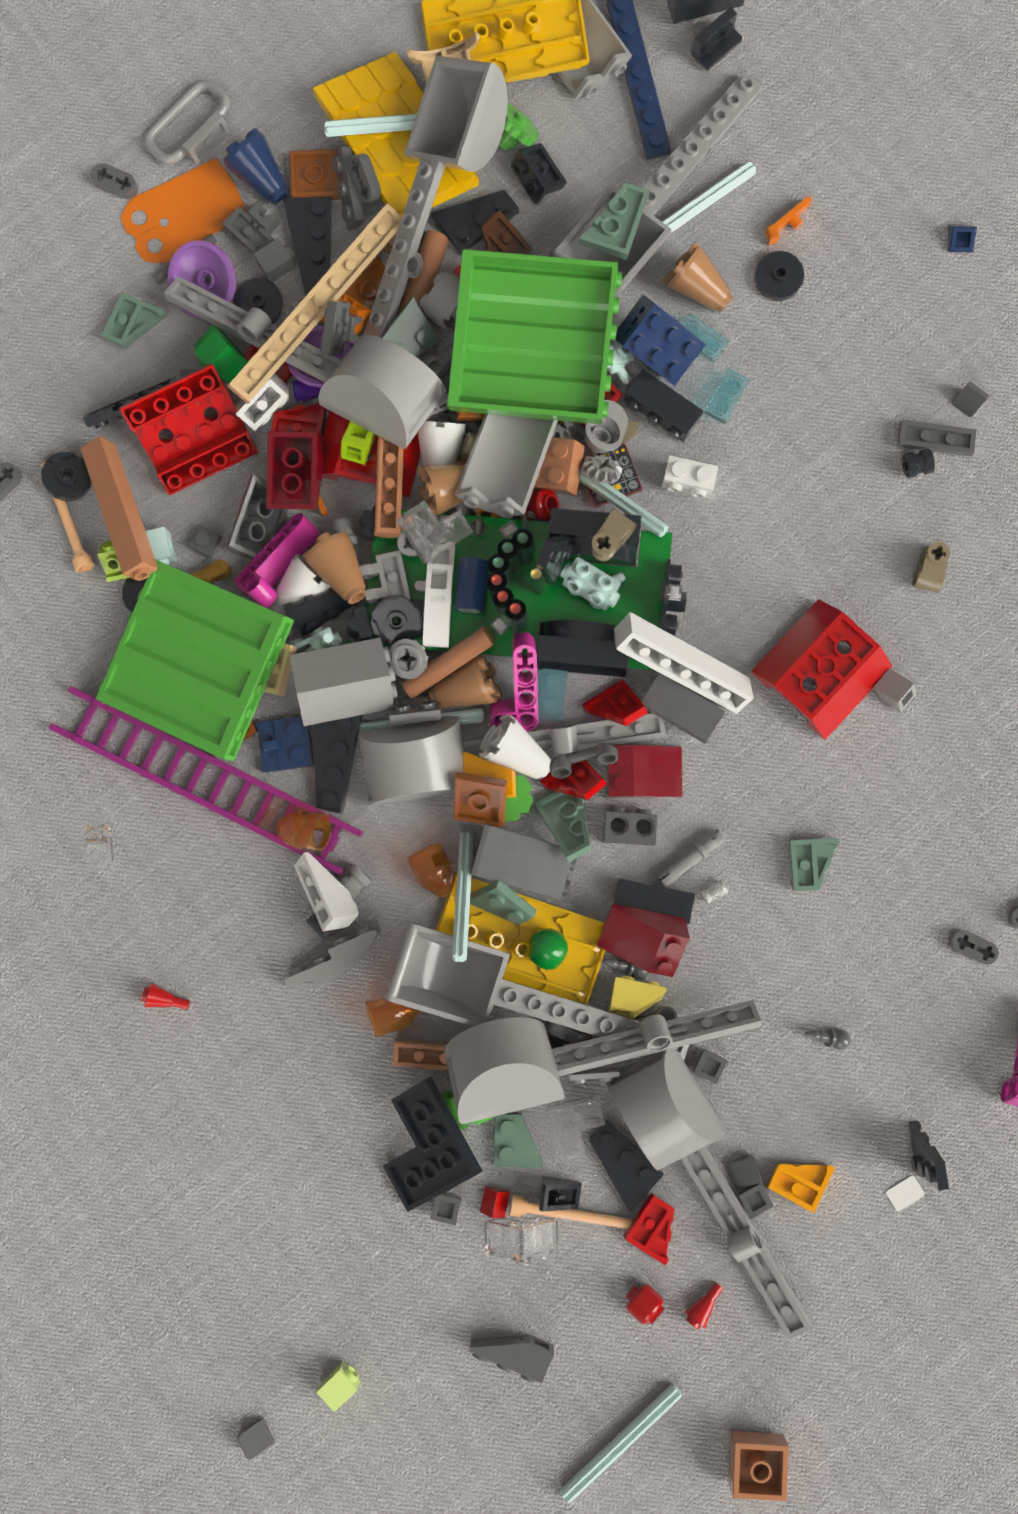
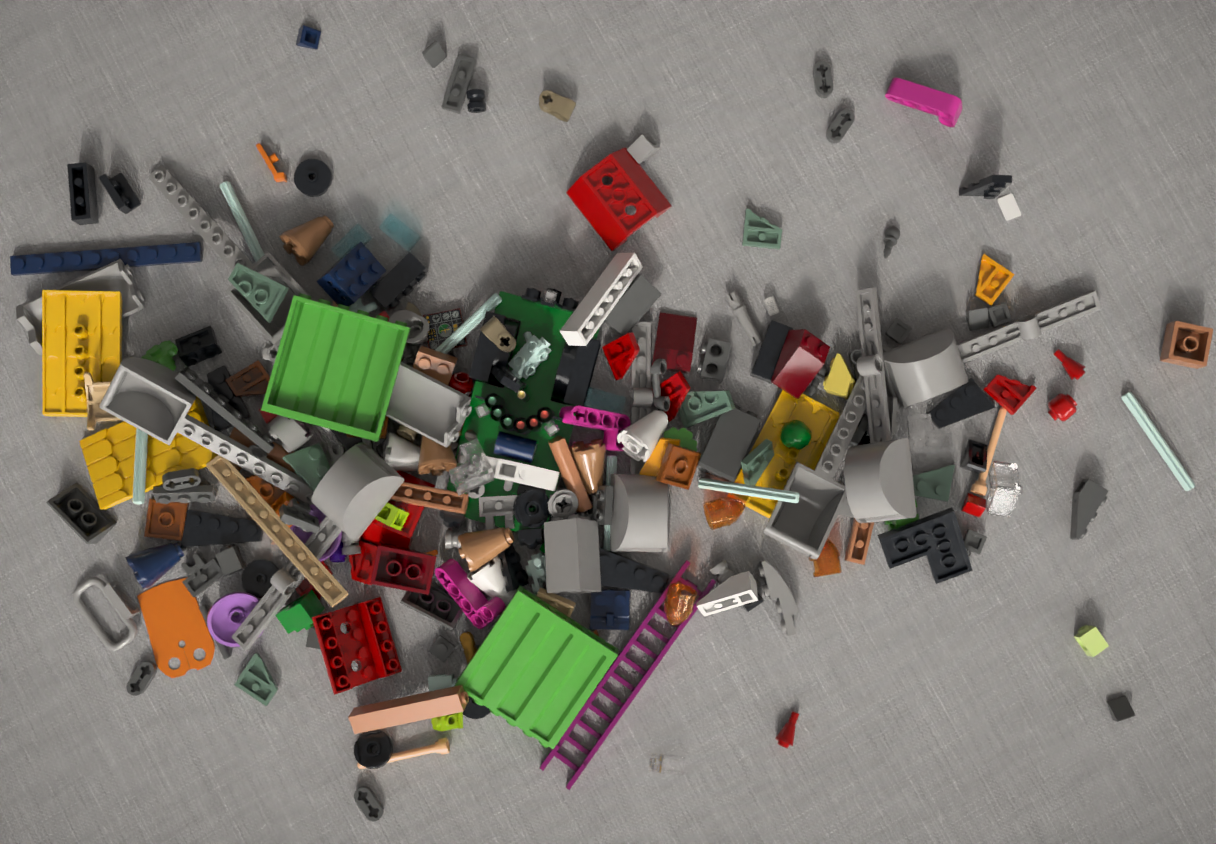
camera: 85 degrees left, 0 degrees up
(101, 416) = (324, 689): black wing -> none
(266, 401) = (343, 576): white brick -> none
(305, 65) = (82, 514): none -> dark grey slope
(312, 405) = (350, 546): none -> light grey wheel
(478, 184) = (220, 404): none -> dark grey wing
(608, 474) = (447, 332): light grey gear -> none
(689, 477) = (457, 271): white brick -> none

